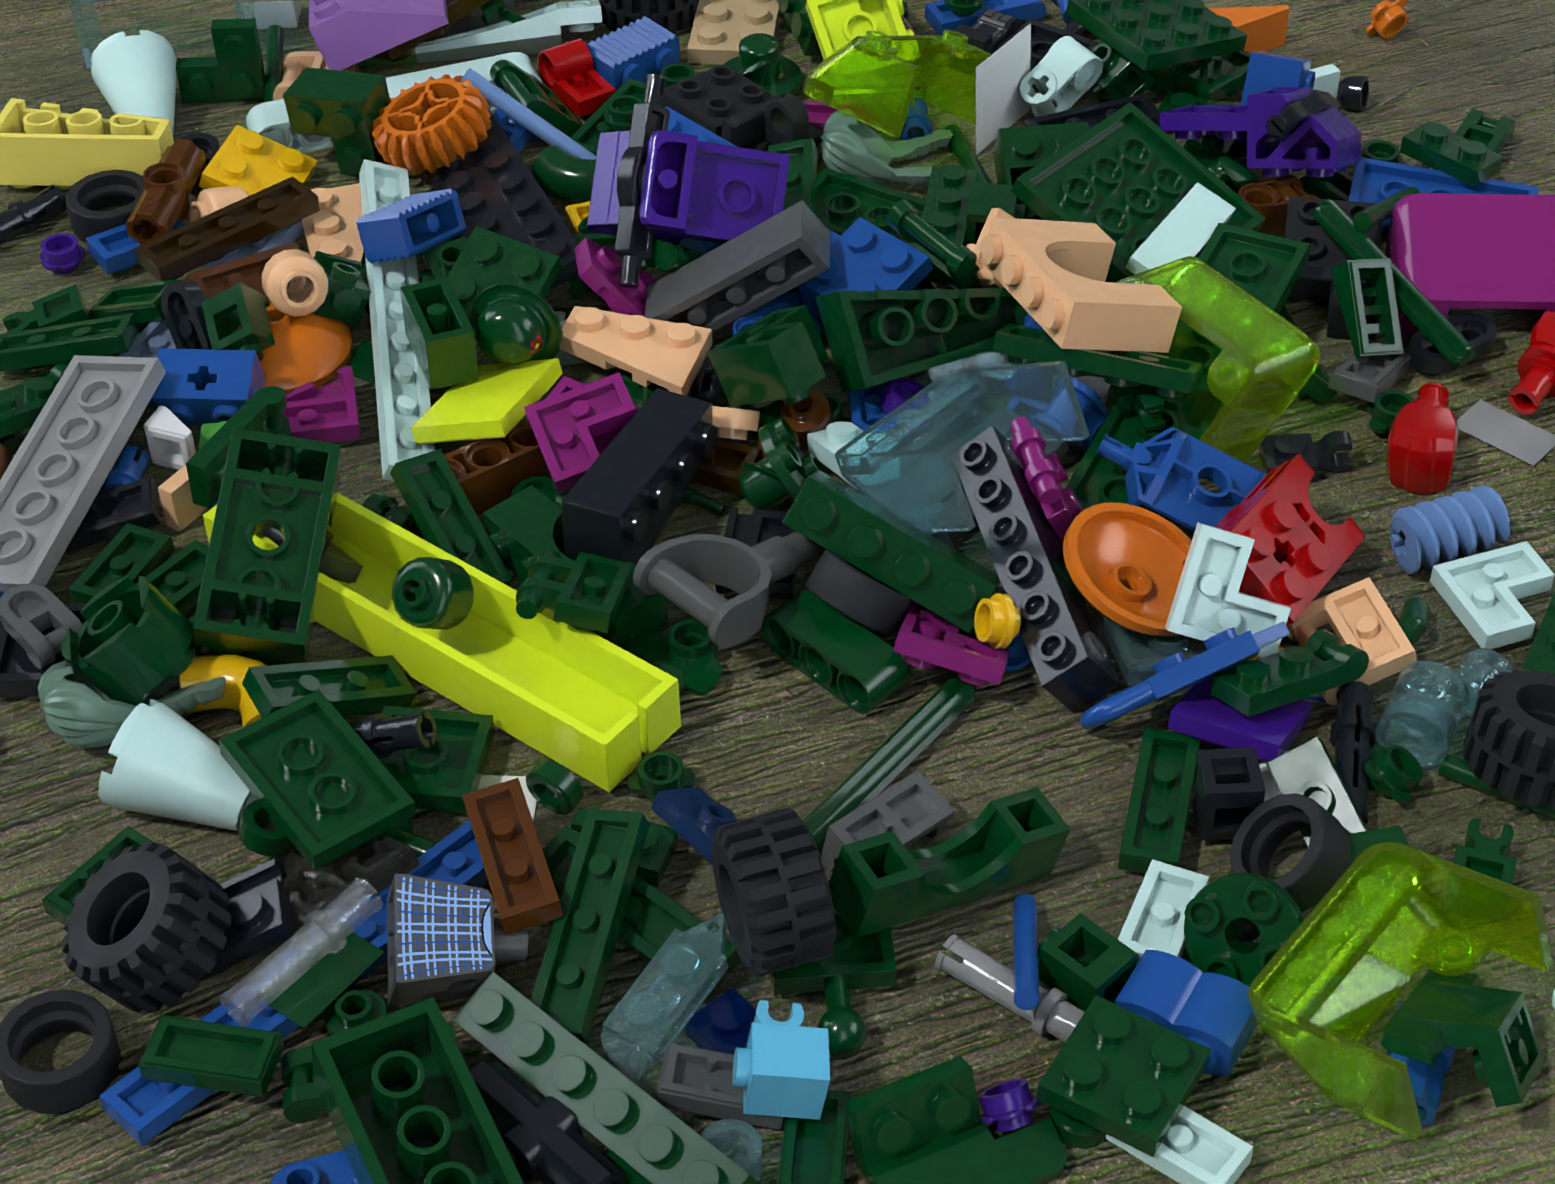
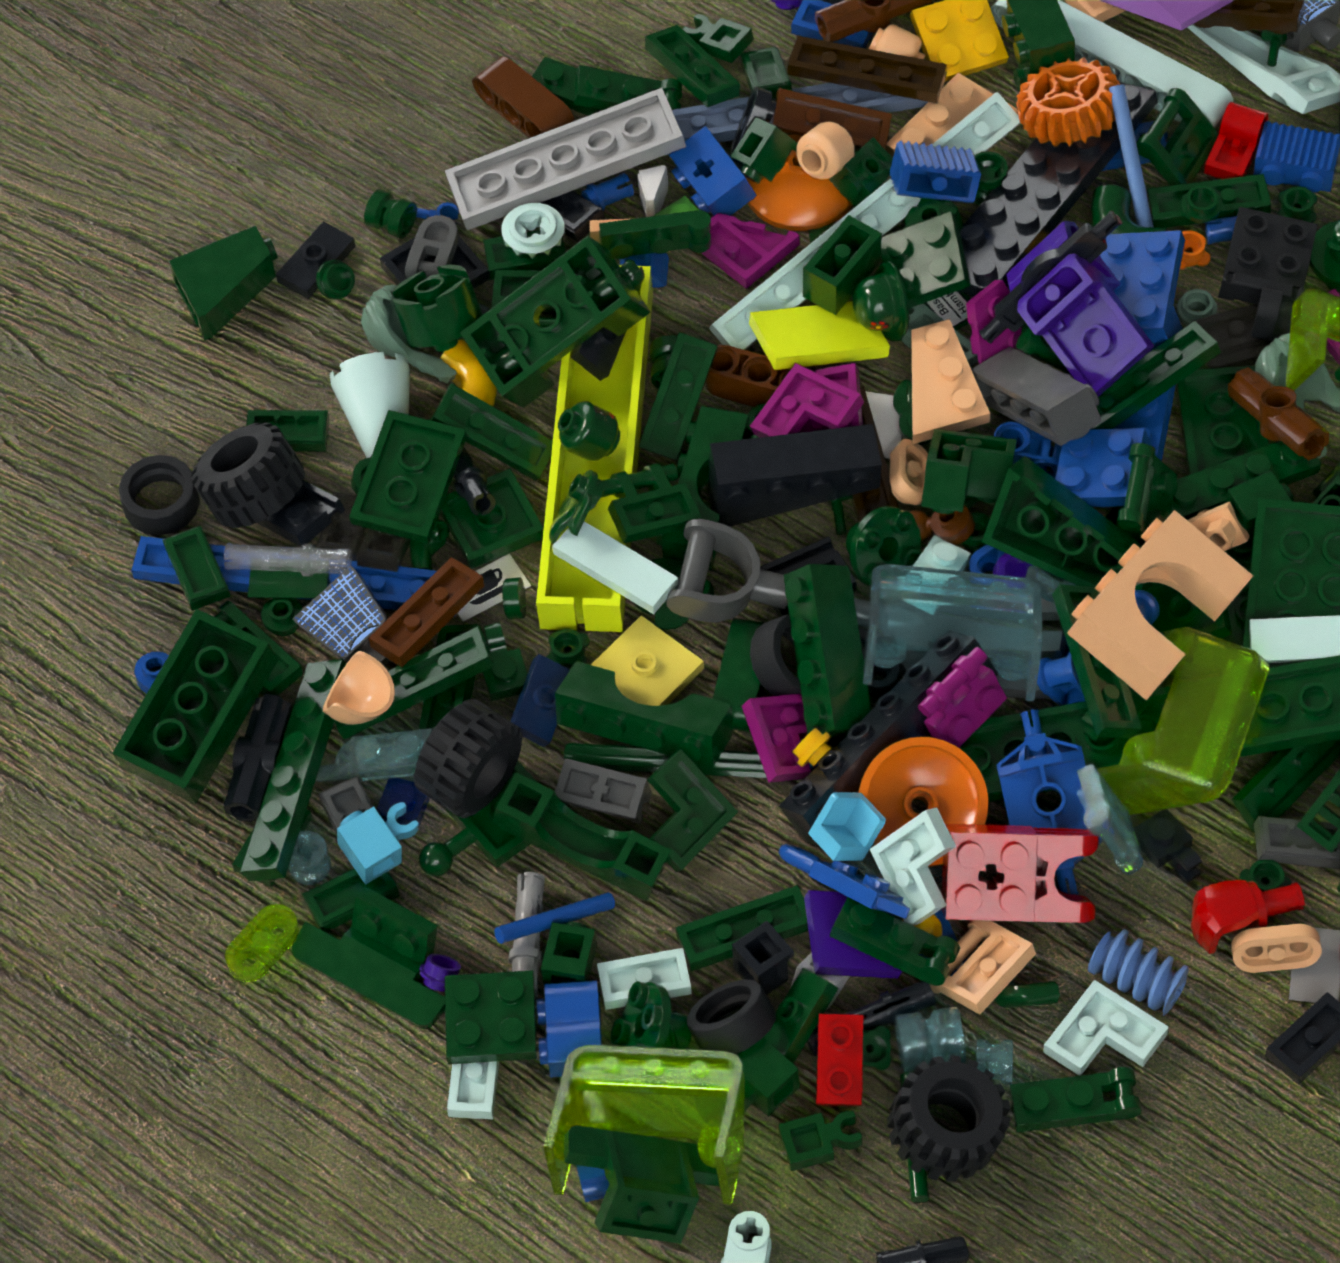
camera: 60 degrees right, 15 degrees up
(130, 526) = (529, 217): none -> light aqua gear
(527, 636) = (581, 498): none -> dark green plate
(566, 964) = (360, 691): none -> light nougat helmet
(628, 652) = (616, 566): none -> light aqua tile
(747, 731) = (649, 664): none -> light yellow plate
(881, 710) = (593, 704): none -> dark green arch
(911, 156) = (1278, 413): none -> reddish brown piece
(965, 756) = (697, 805): none -> dark green plate
(1134, 627) = (847, 826): none -> medium azure panel
(1262, 441) = (1109, 819): none -> clear light blue plate
(1410, 791) = (840, 1060): none -> red plate
(1484, 433) = (1276, 948): none -> light nougat plate

